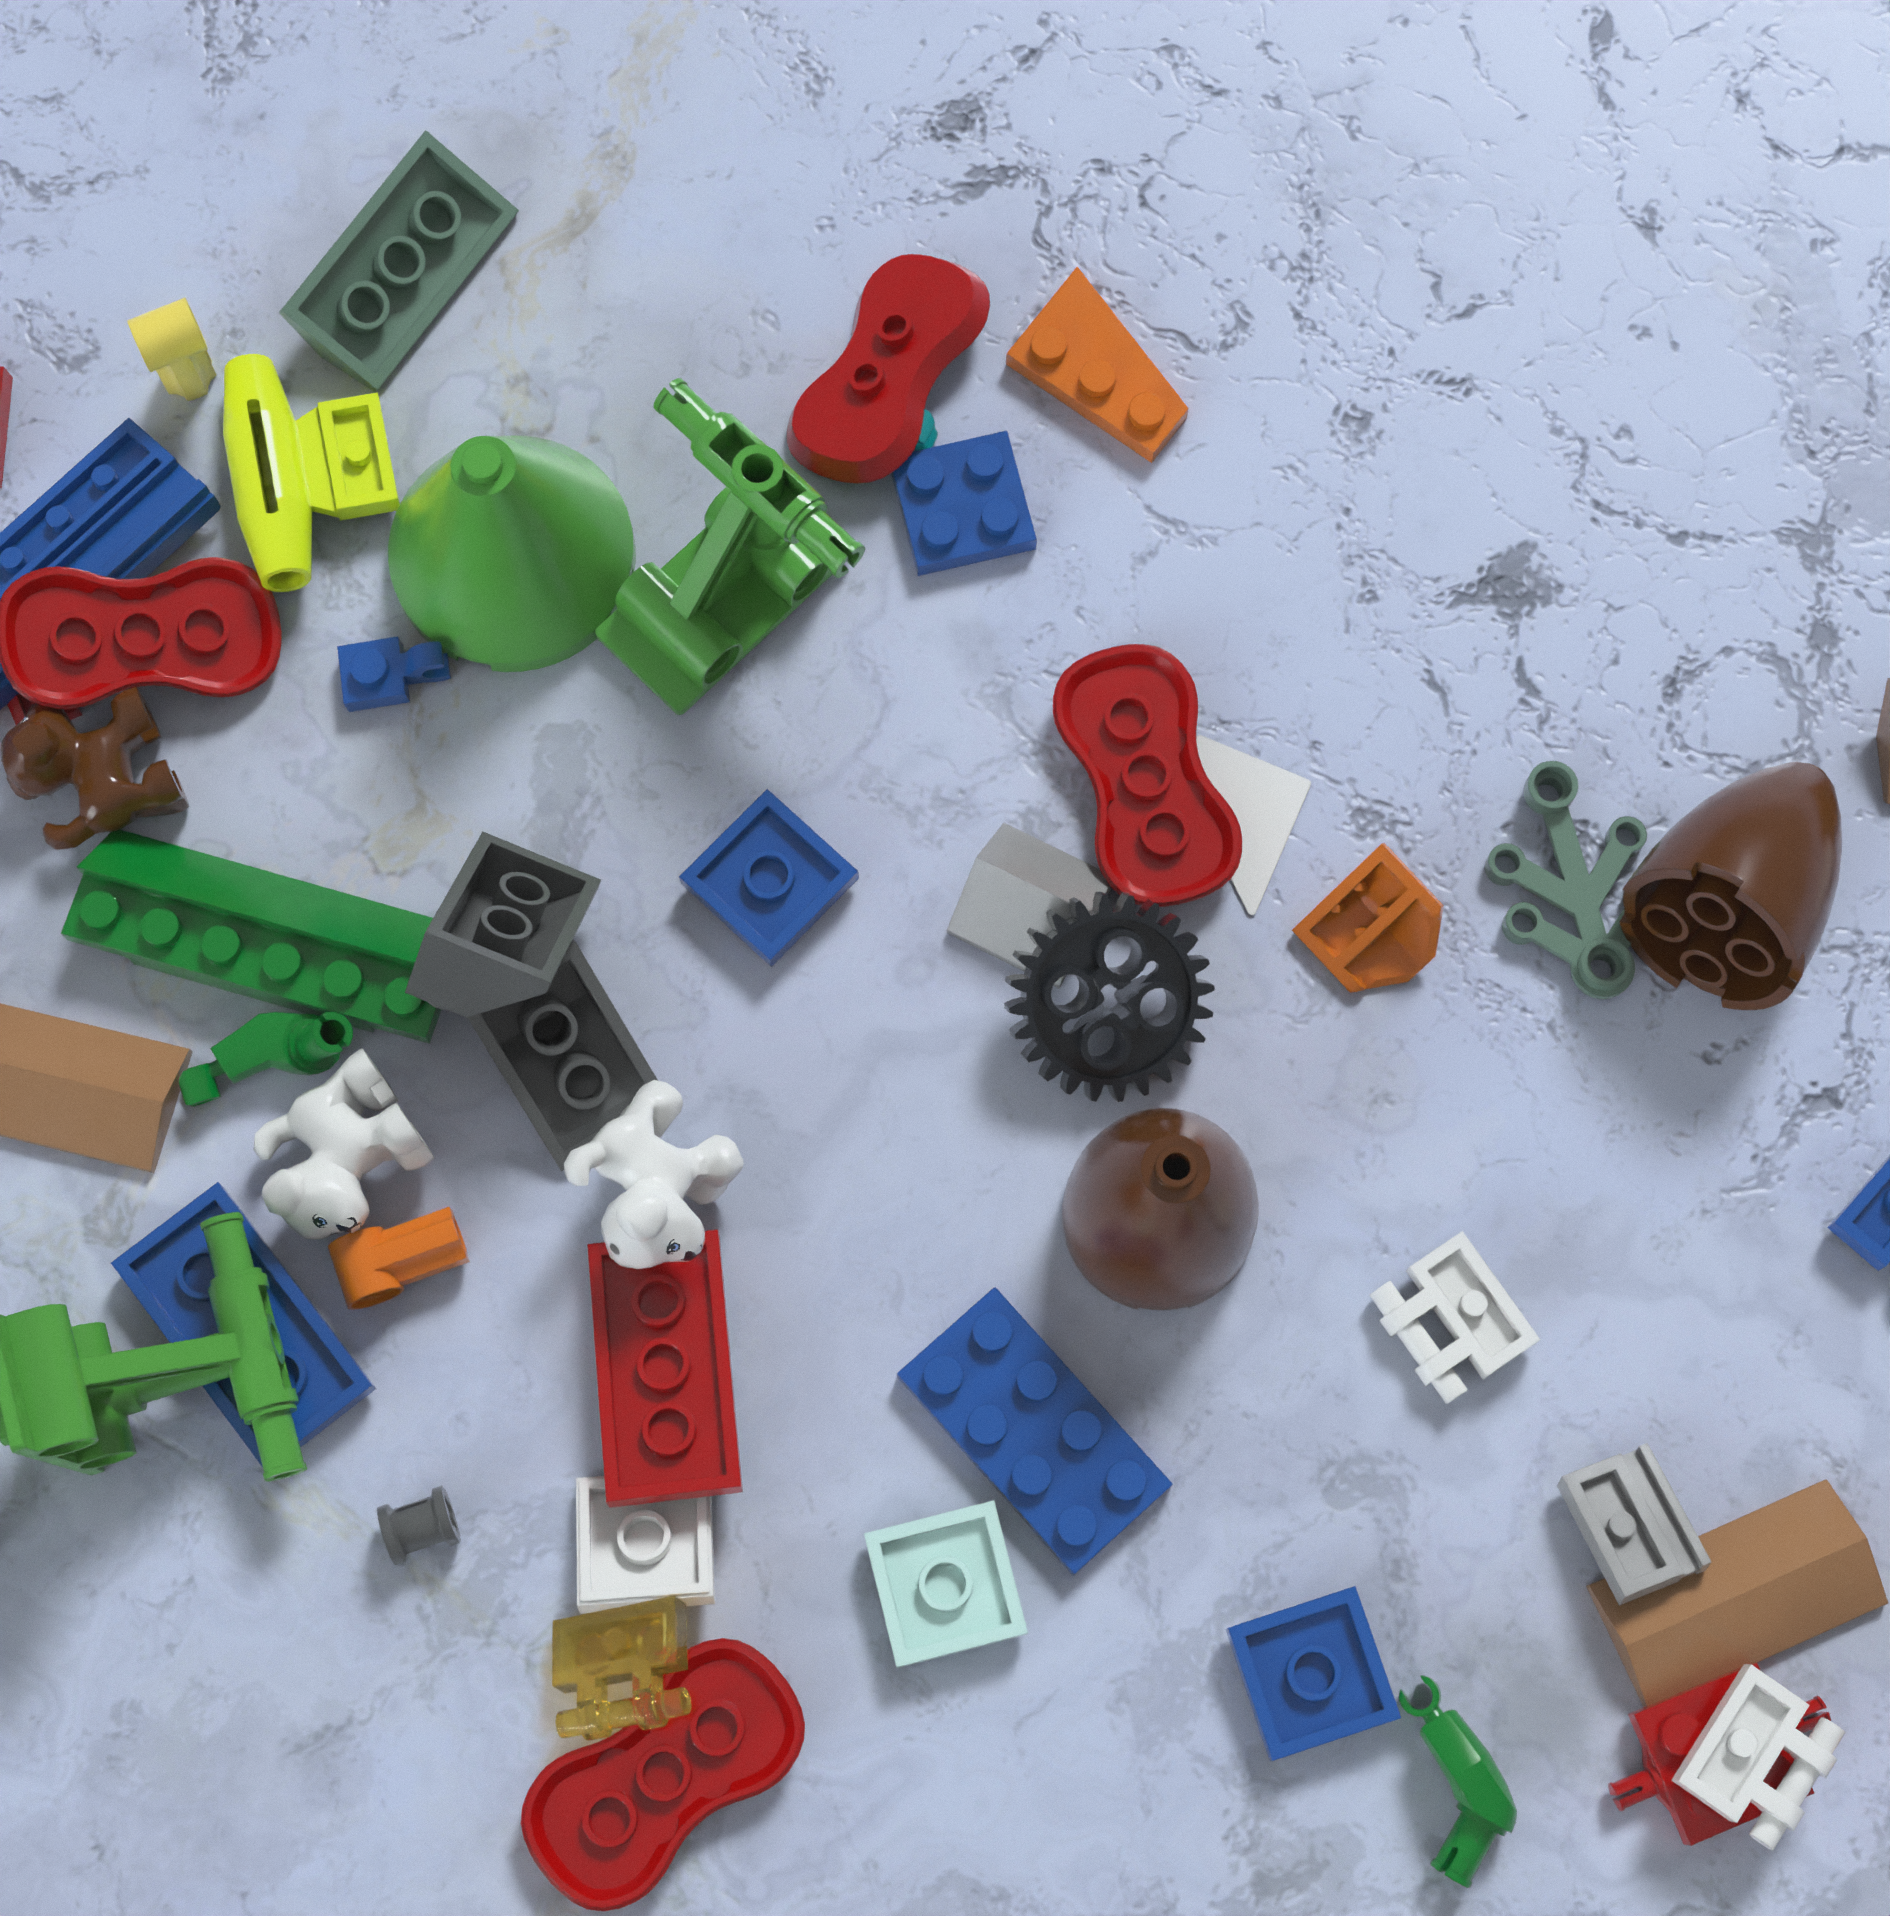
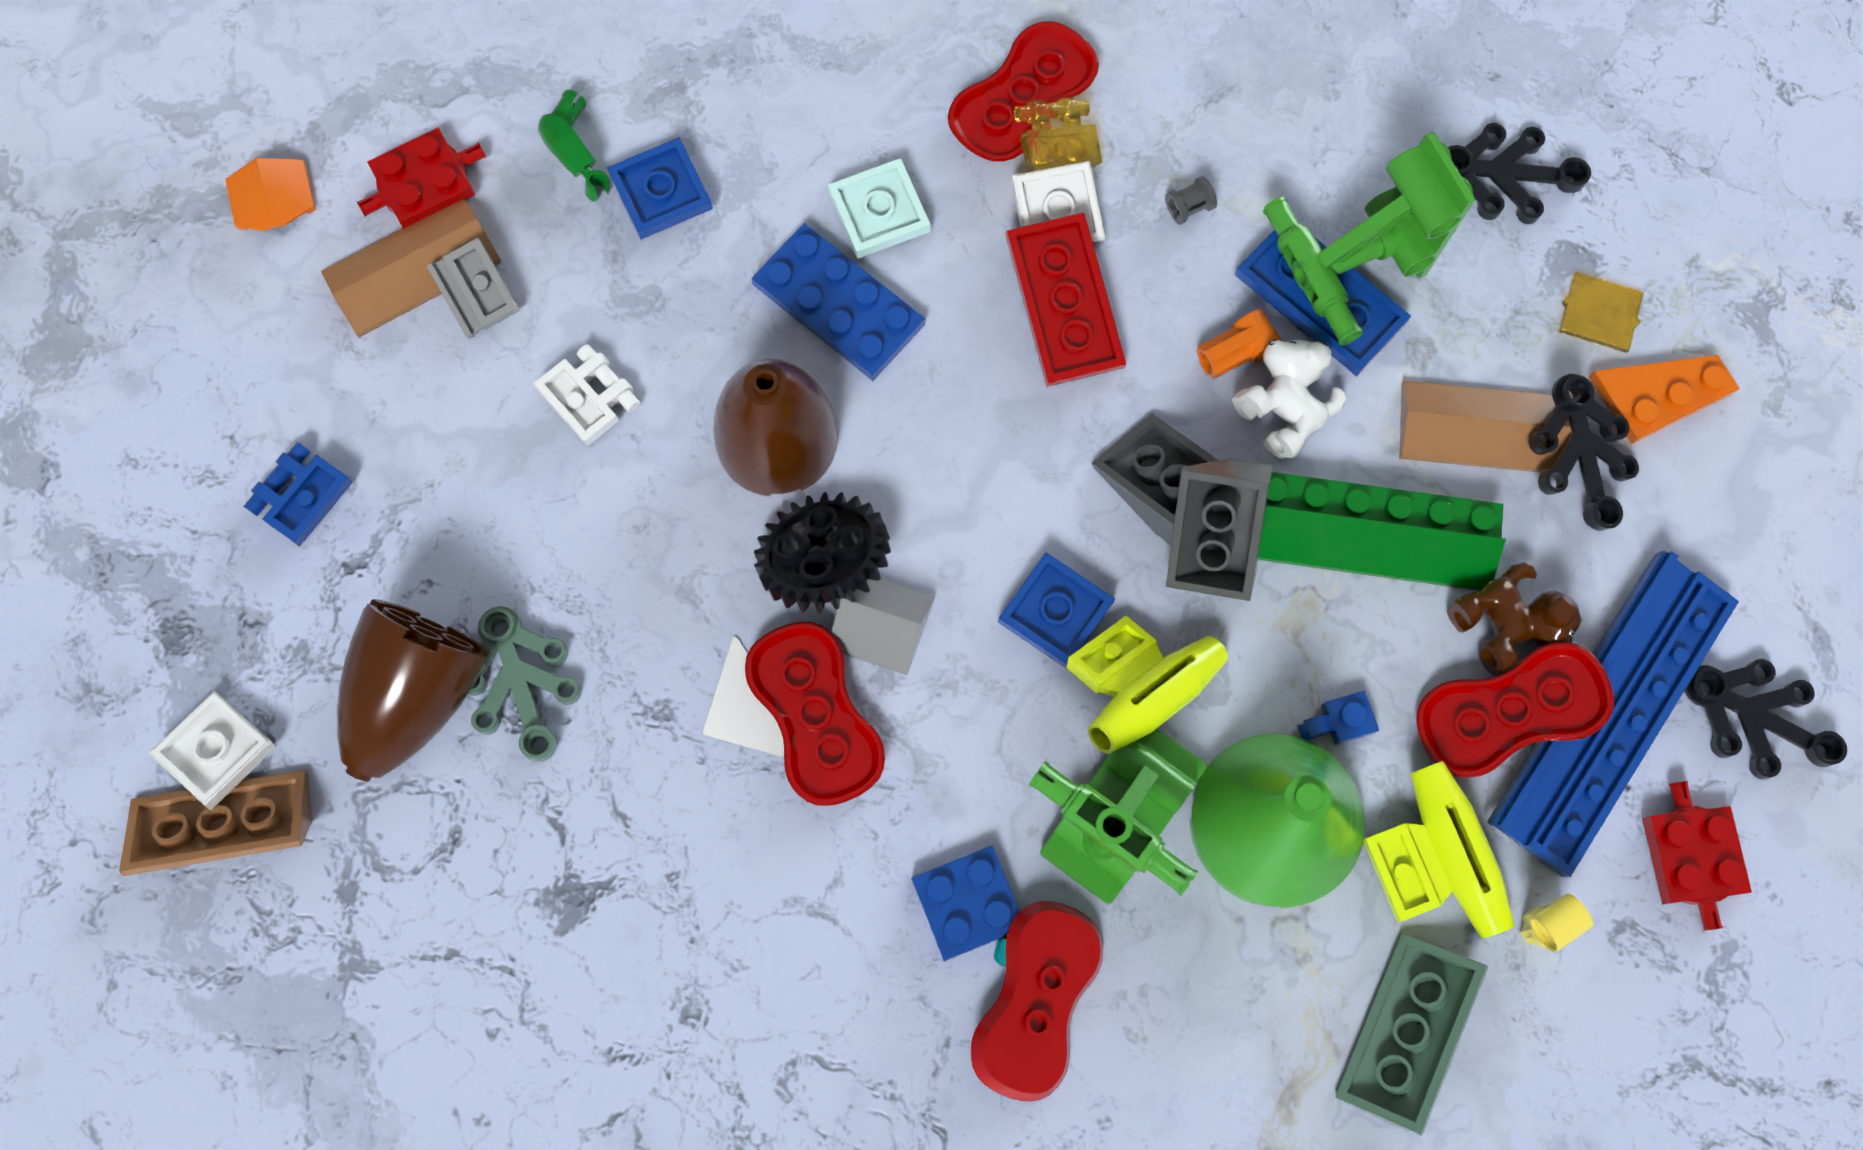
camera: 170 degrees right, 0 degrees up
(275, 1039) = (1353, 461): green arm -> none
(651, 1219) = (1089, 364): white animal -> none
(659, 736) = (1142, 681): none -> neon yellow plate
(1098, 369) = (884, 1025): orange wing -> none
(1375, 924) = (655, 632): orange slope -> none
(1741, 1746) = (407, 168): white plate -> none

